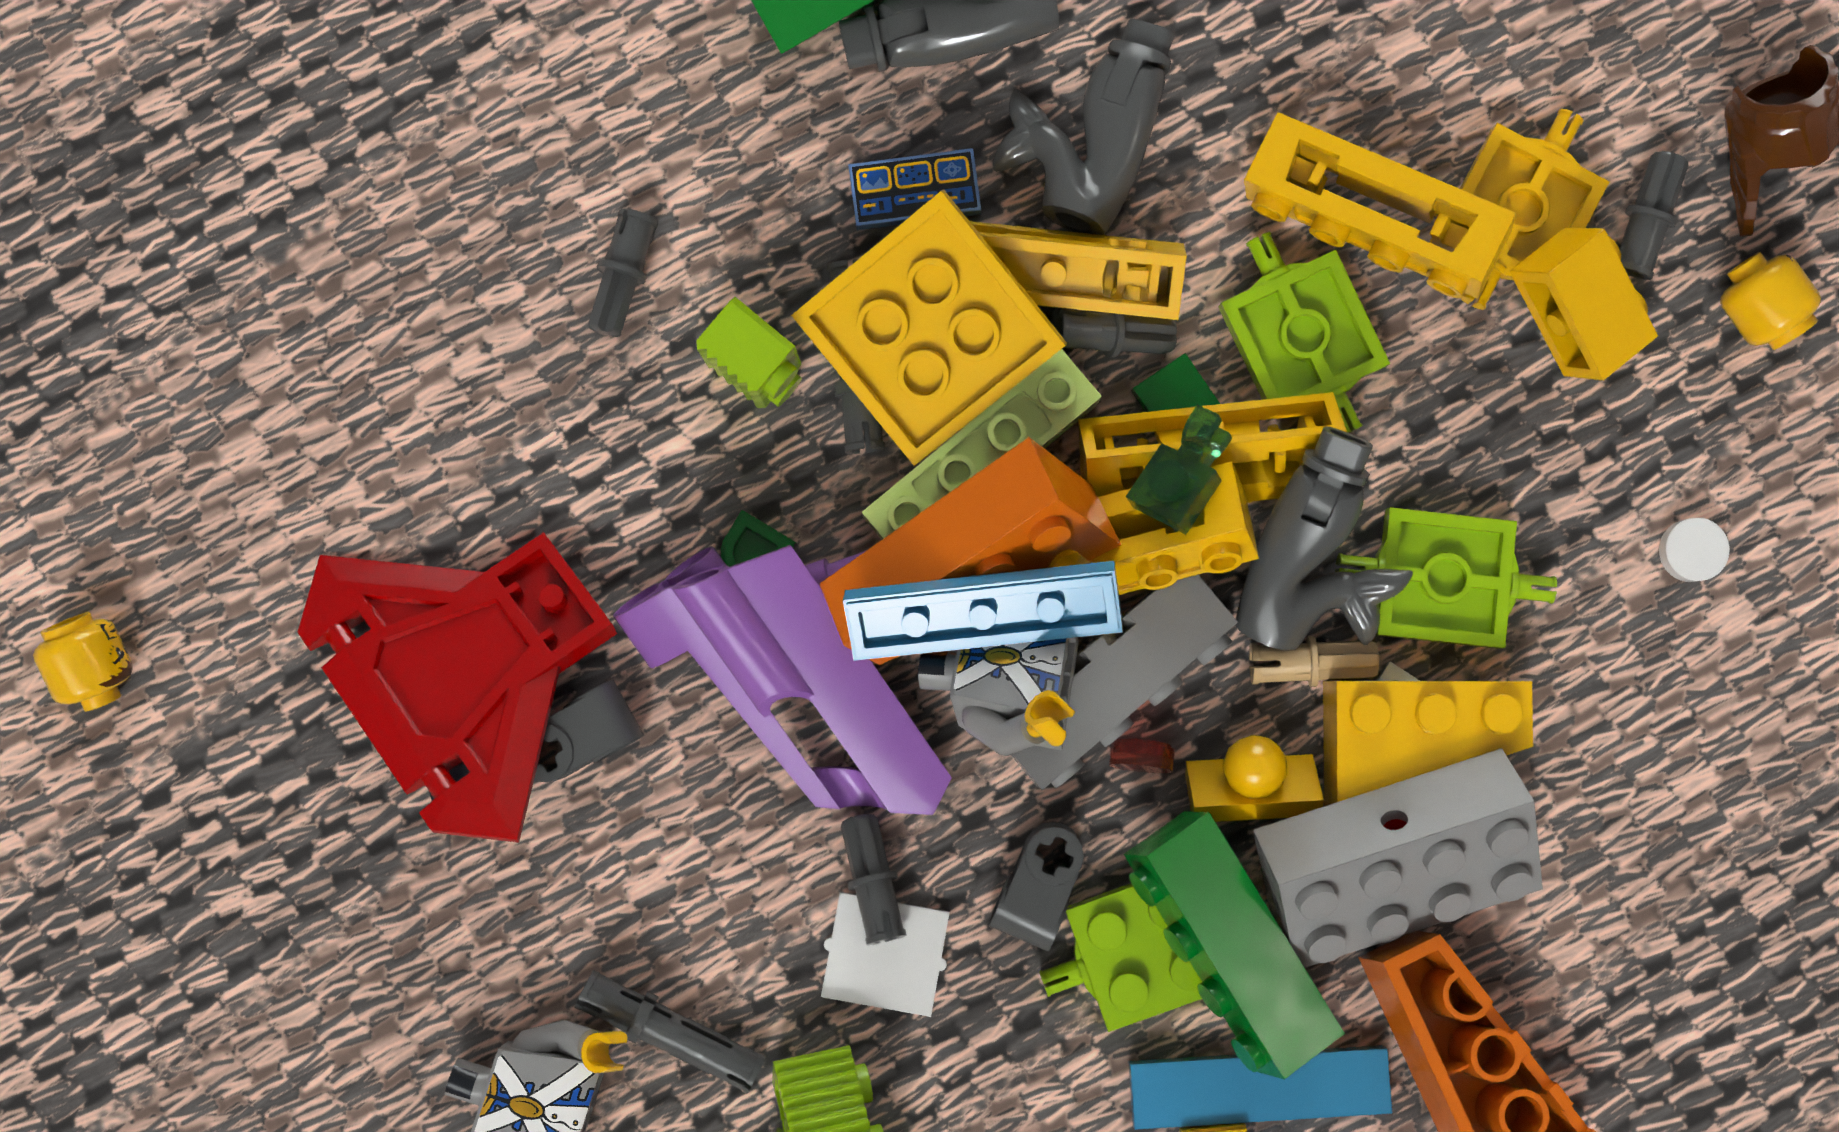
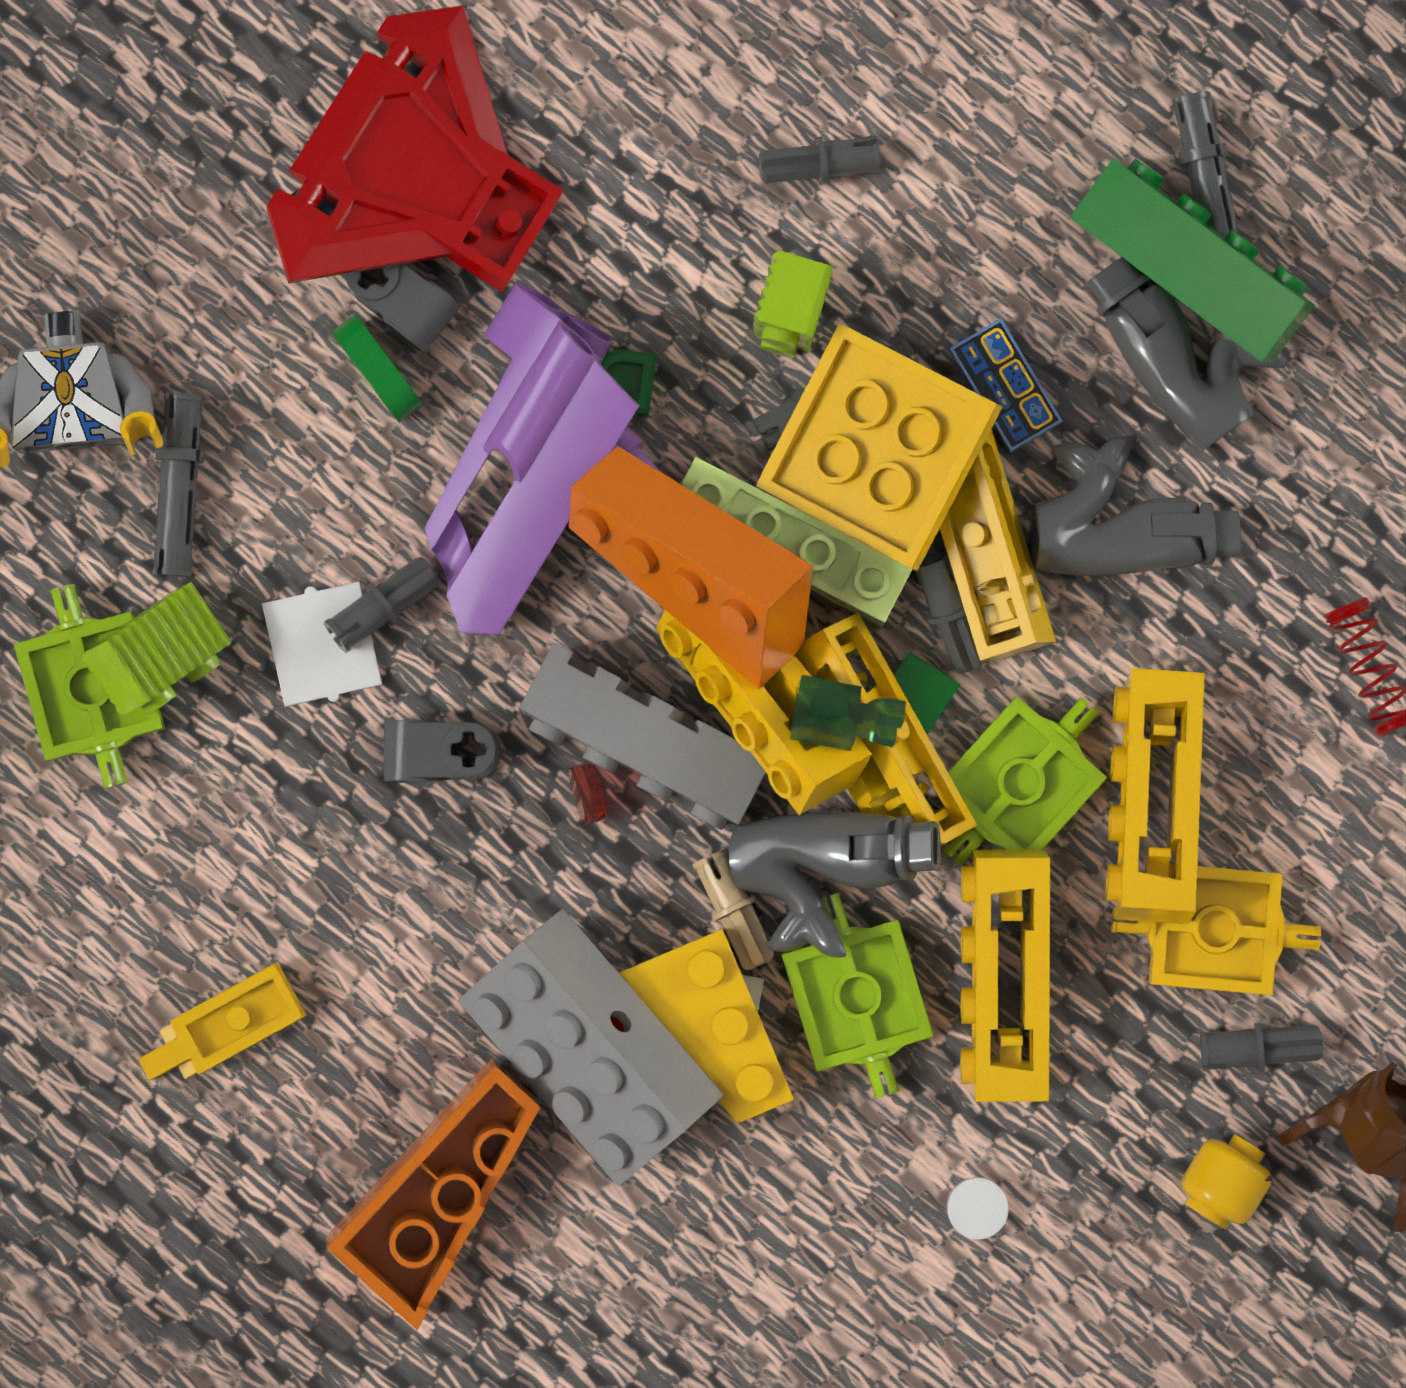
camera: 65 degrees right, 0 degrees up
(639, 787) = (377, 368): none -> green beam
(983, 610) = (648, 589): tile -> none
(1012, 691) = (617, 639): torso -> none
(1123, 960) = (422, 867): lime plate -> none
(1227, 1092) = (343, 1017): dark azure tile -> none
(1233, 945) = (456, 934): green brick -> none
(1254, 782) = (604, 898): yellow tile -> none
(1582, 466) = (1006, 1075): none -> yellow brick
(1584, 302) = (1151, 1013): yellow brick -> none

